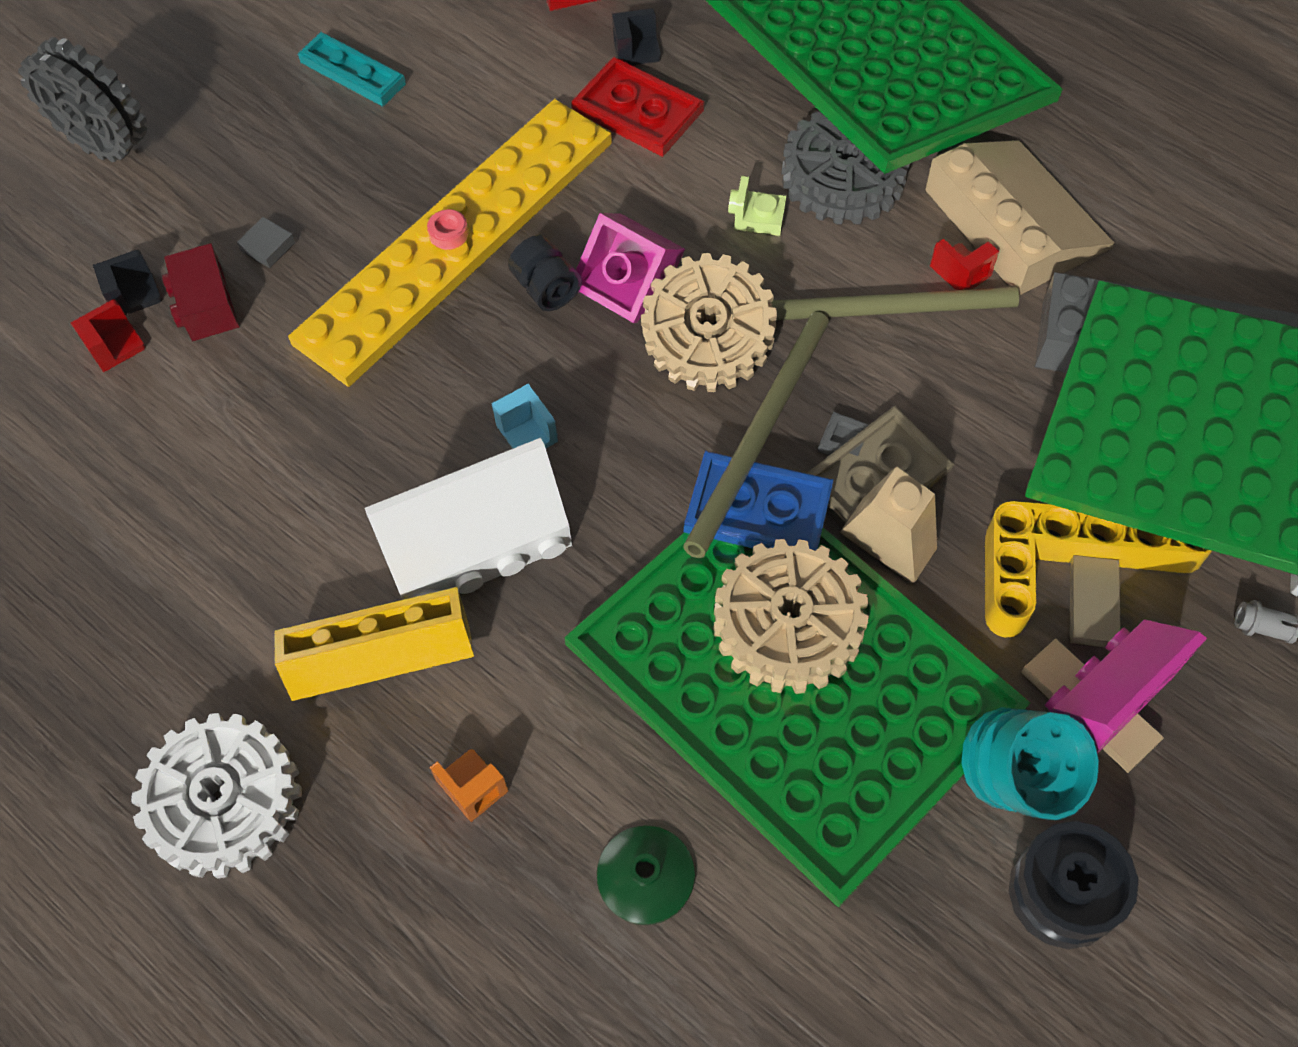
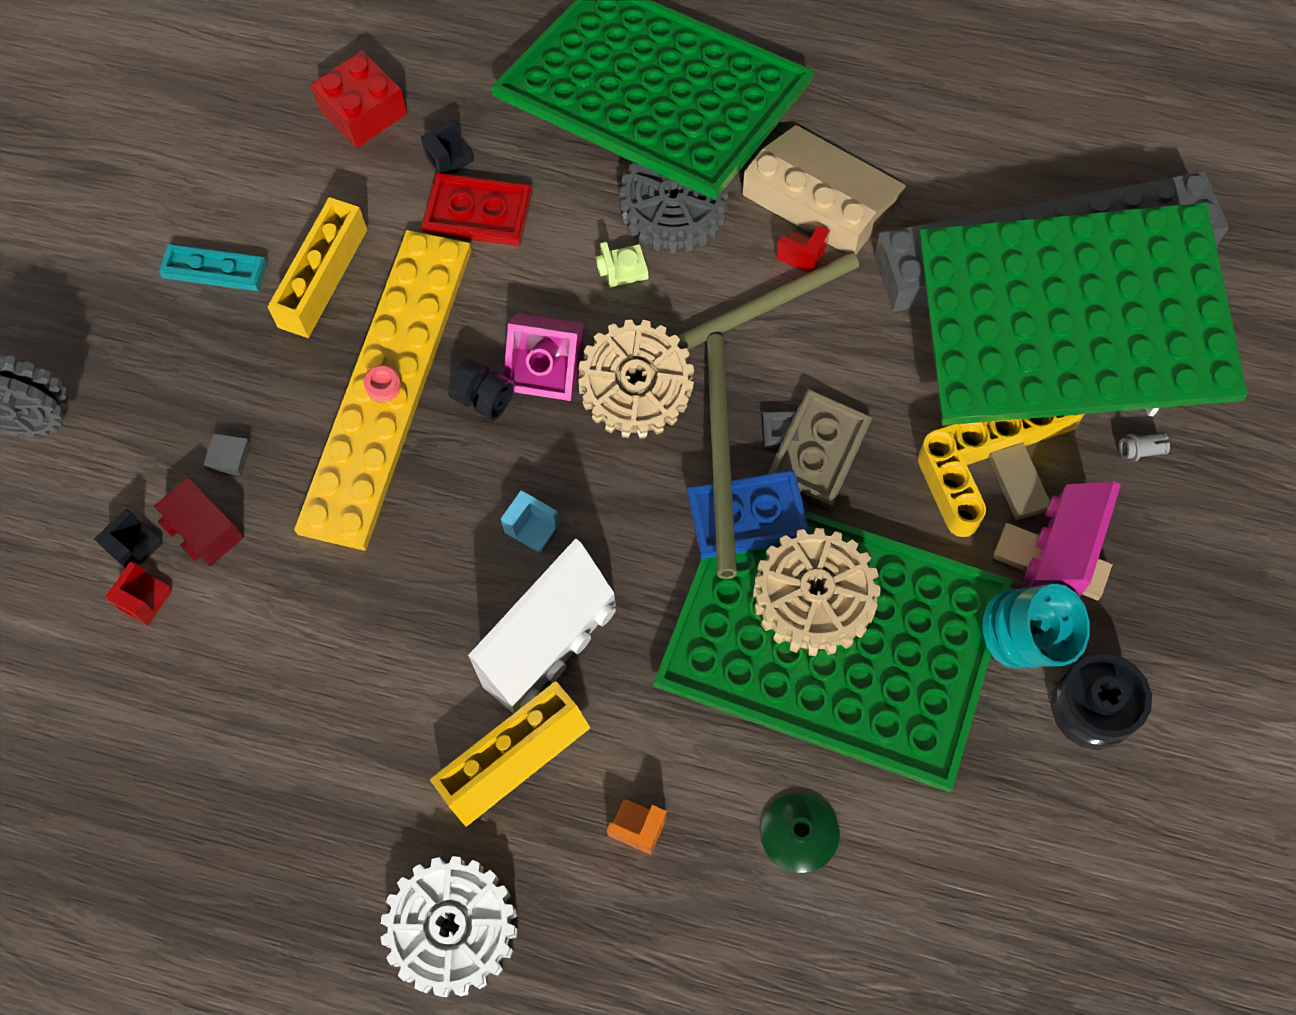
camera: 25 degrees left, 5 degrees up
(445, 99) = (318, 267): none -> yellow brick
(896, 524) = (856, 486): tan slope -> none

